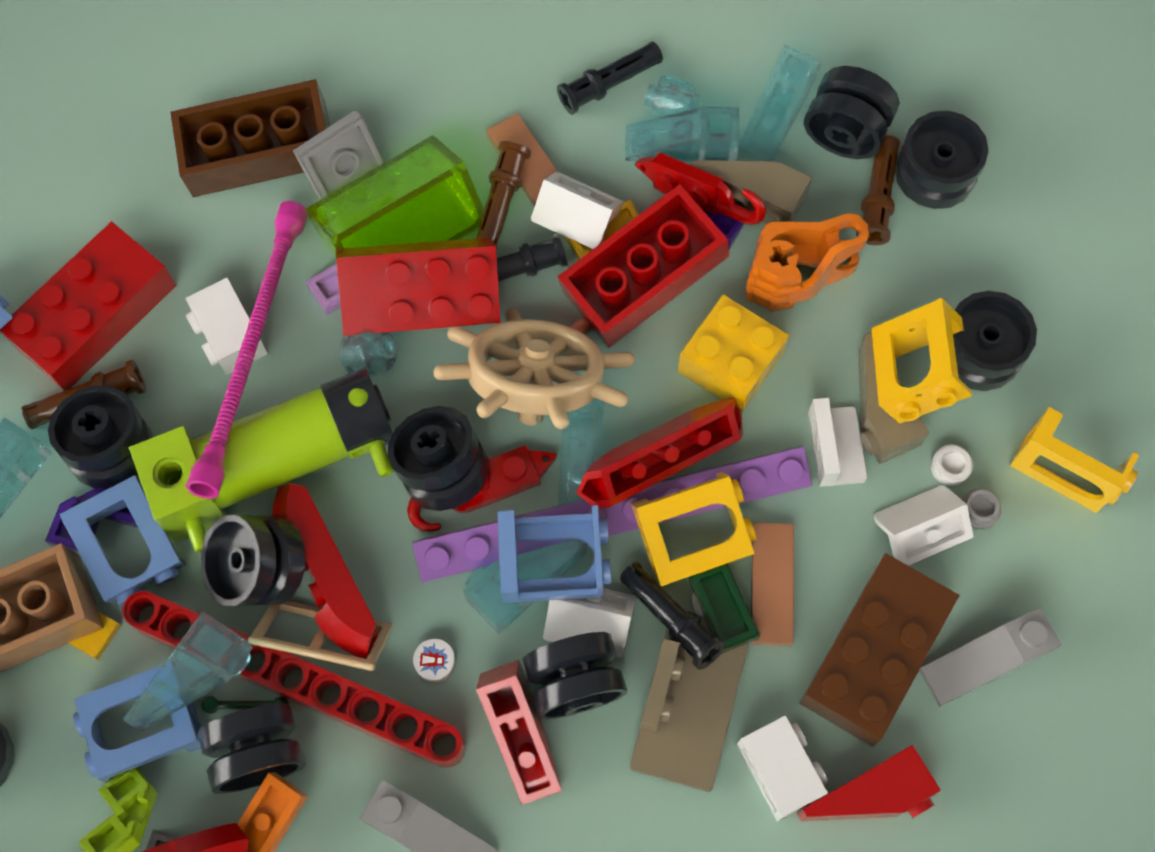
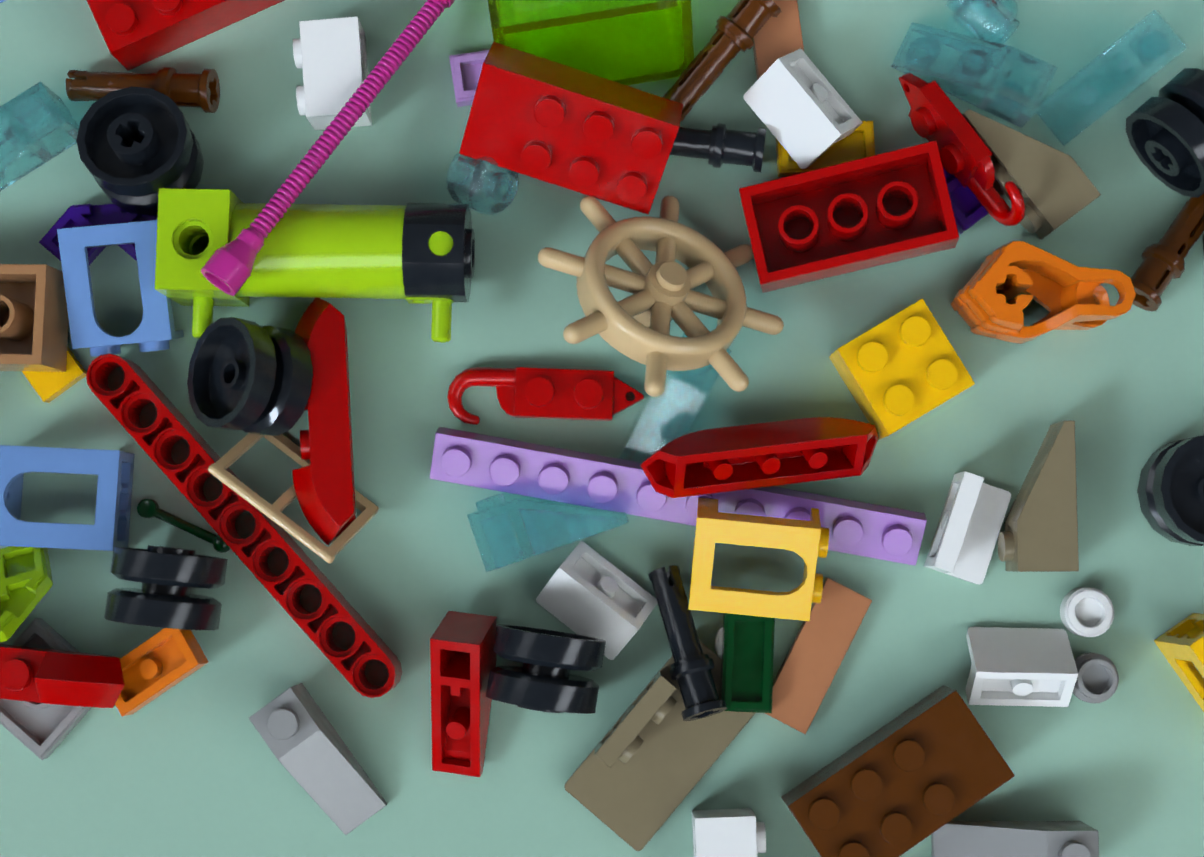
camera: 25 degrees right, 15 degrees up
(196, 667) = (147, 471): clear light blue slope -> none
(434, 660) = (406, 571): white tile -> none
(438, 458) = (505, 348): black wheel -> none
(577, 526) = (628, 503): medium blue panel -> none
(921, 327) = (1119, 540): yellow panel -> none

